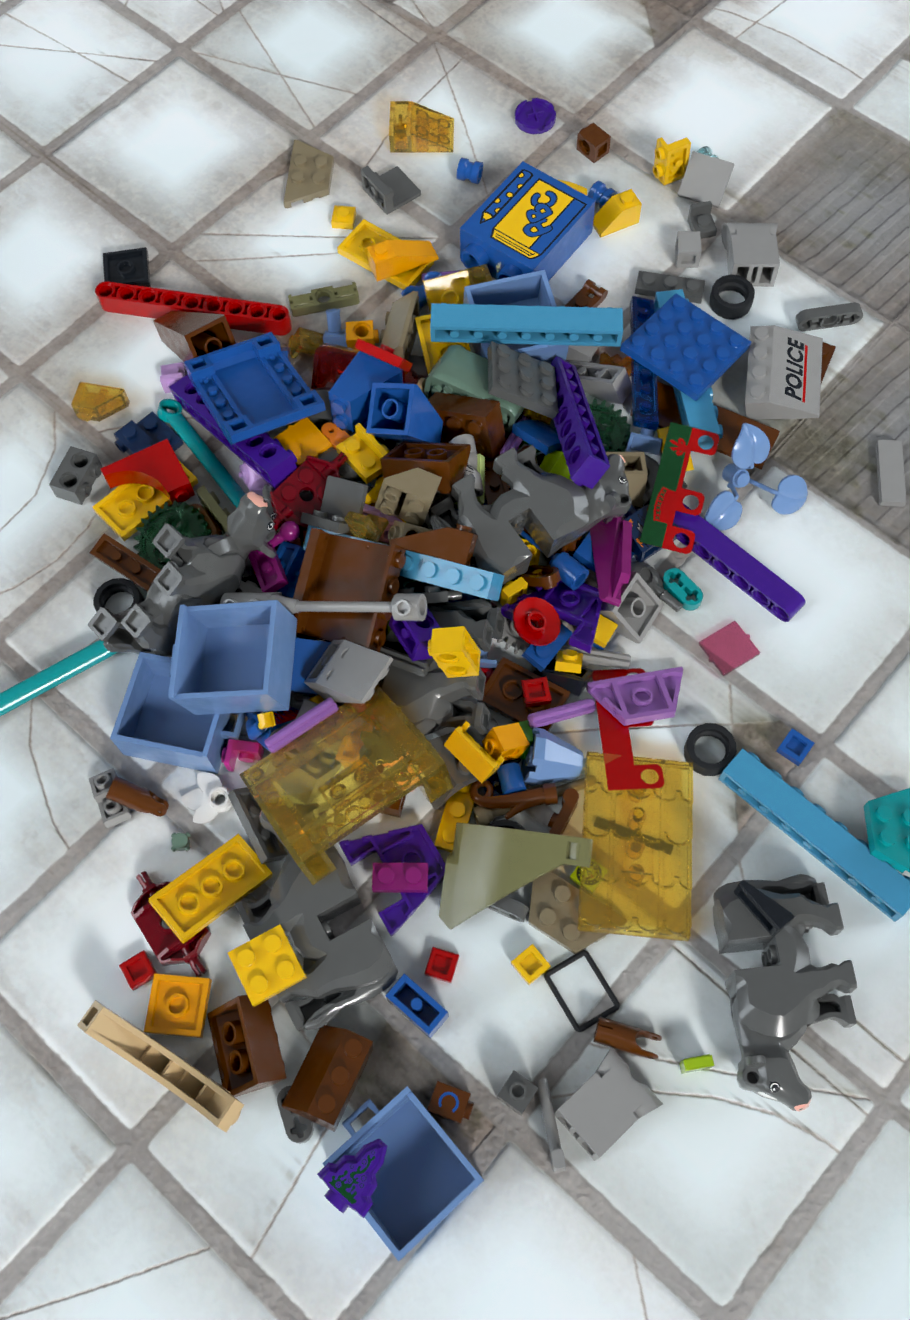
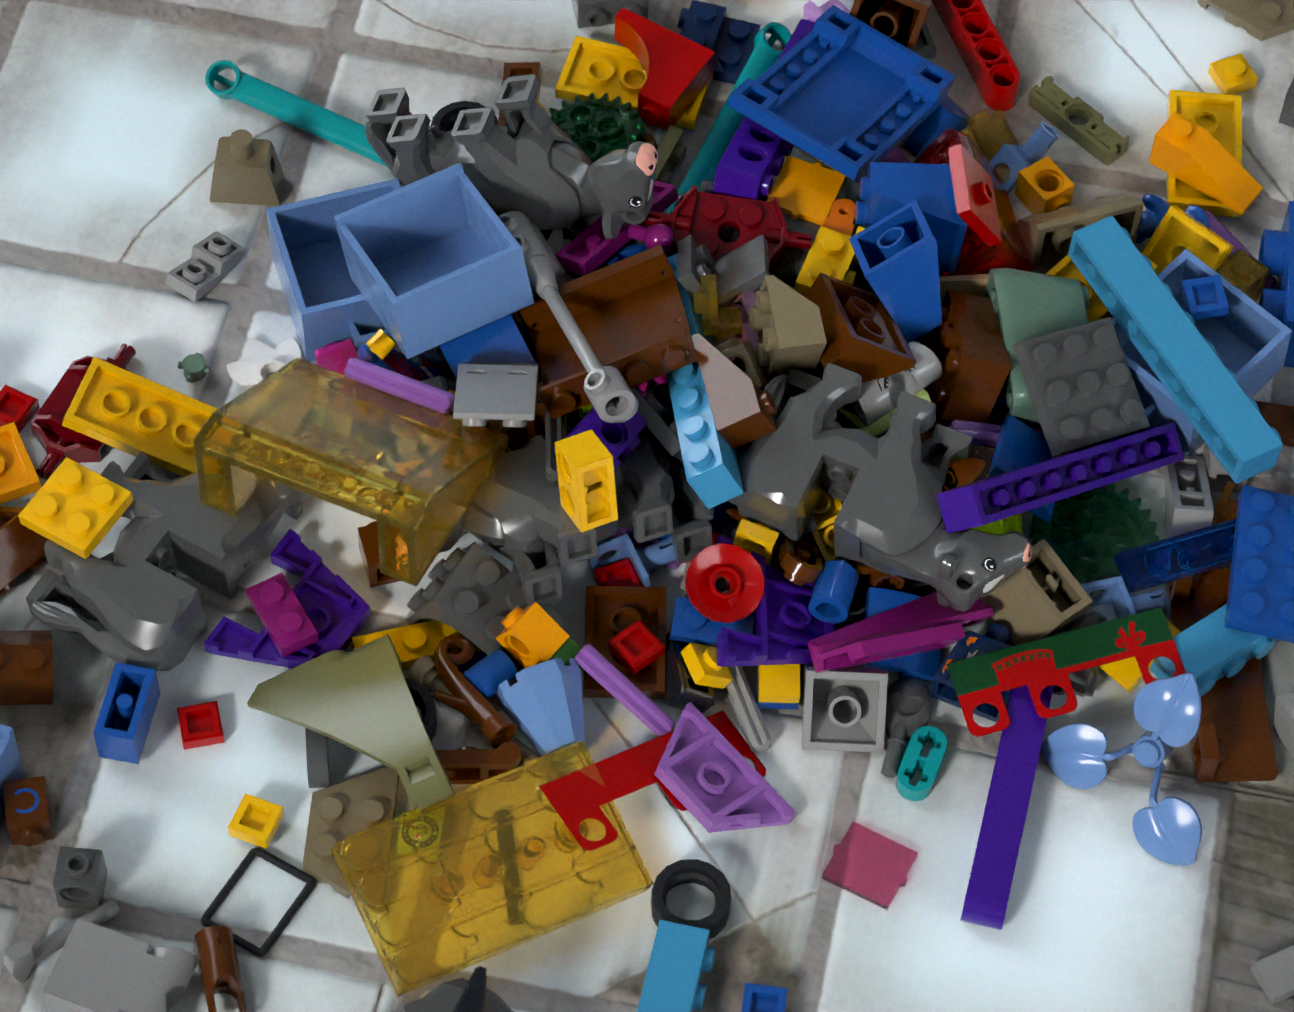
camera: 55 degrees right, 10 degrees down
(59, 739) = (246, 171): none -> dark tan torso
(136, 797) = (218, 286): reddish brown piece -> none
(472, 754) = (487, 598): yellow hinge -> none
(503, 293) = (1204, 297): none -> blue plate

